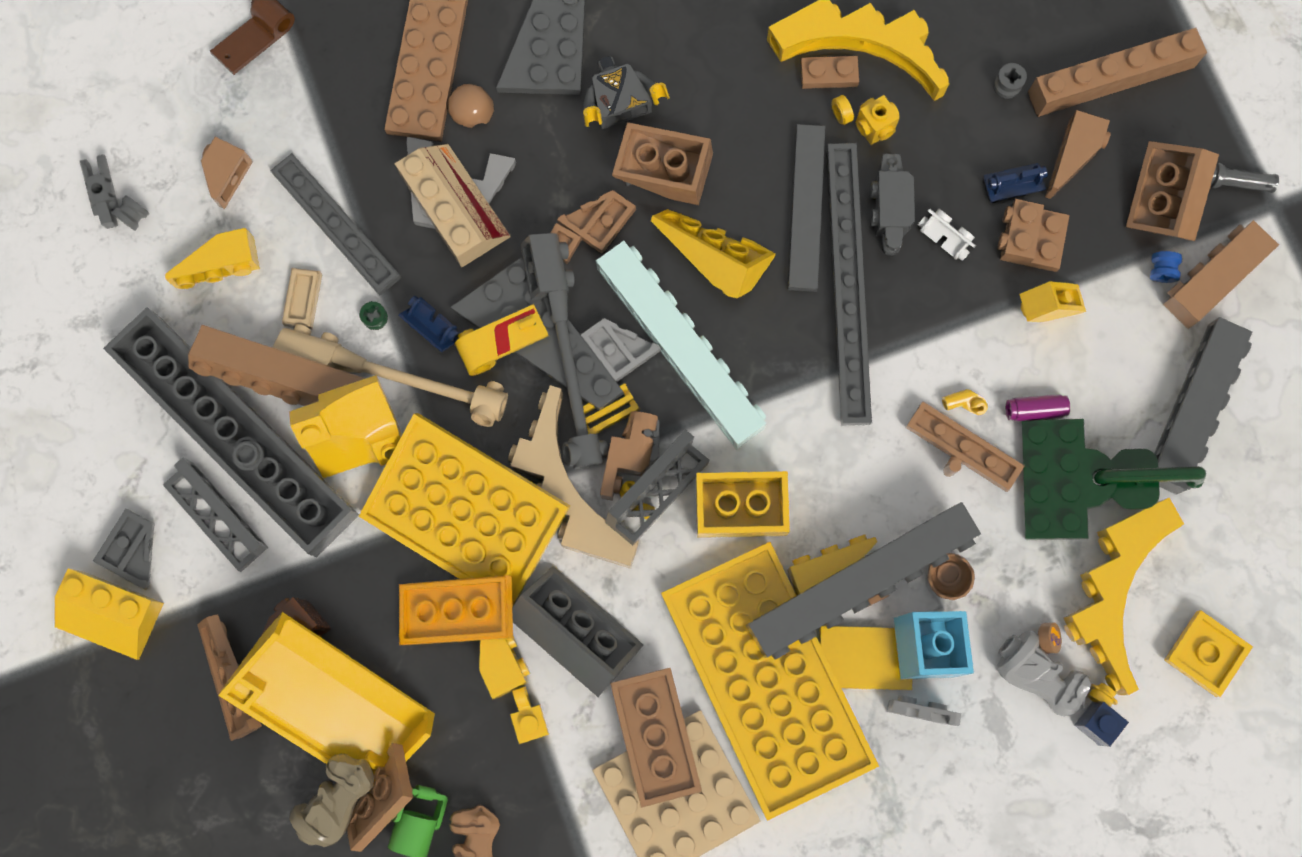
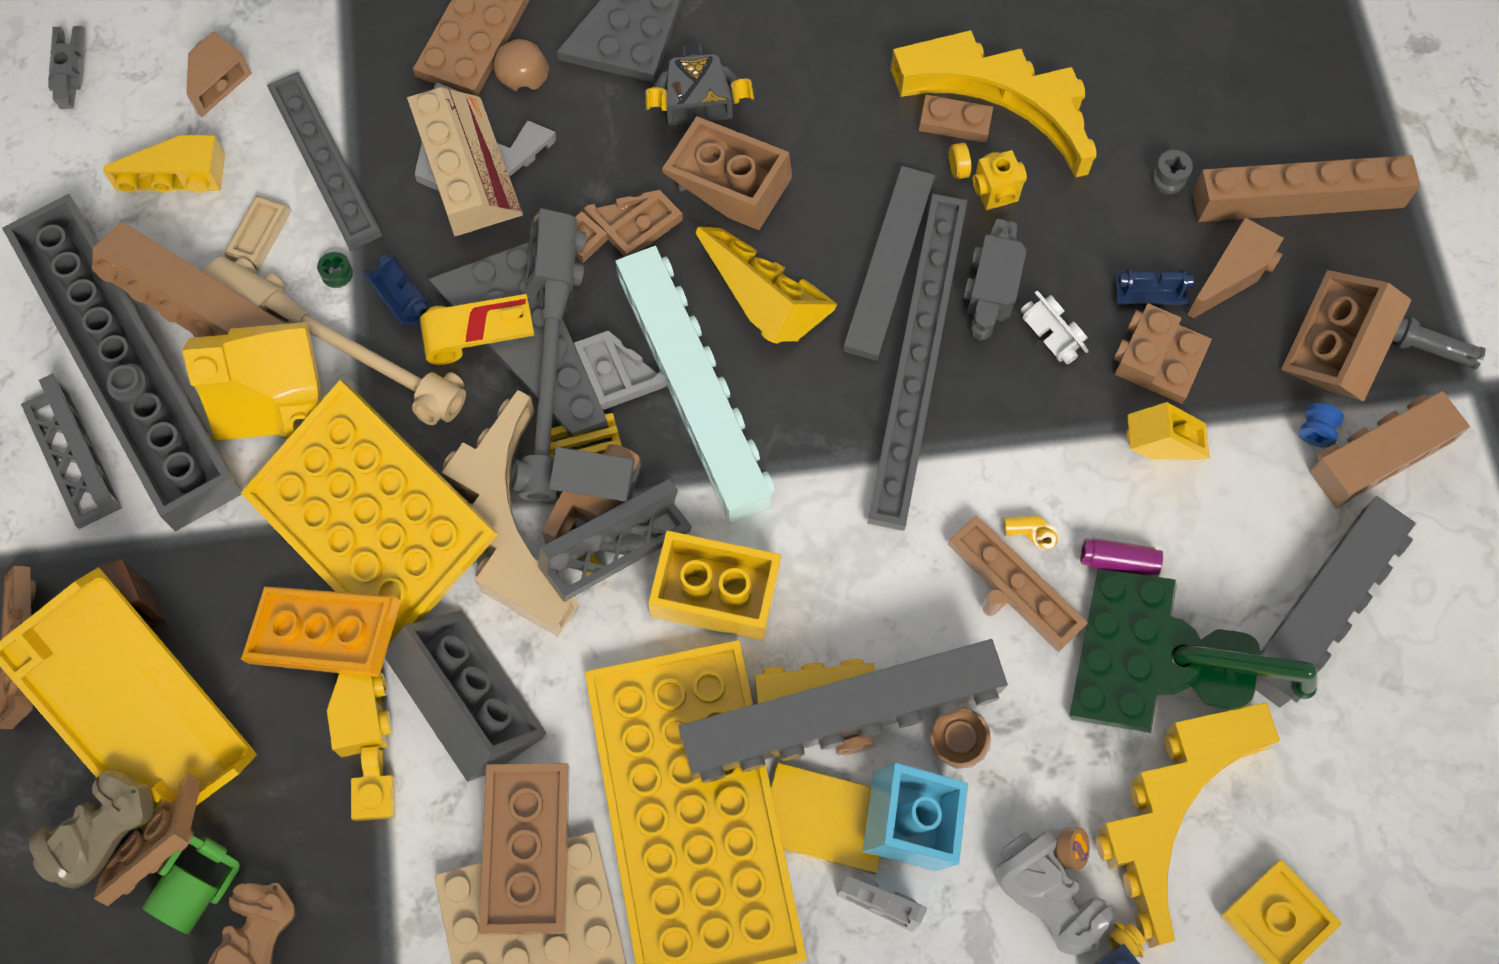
camera: 10 degrees right, 10 degrees down
(130, 212) = (90, 94): dark grey wheel -> none
(628, 441) = (592, 474): none -> dark grey hinge

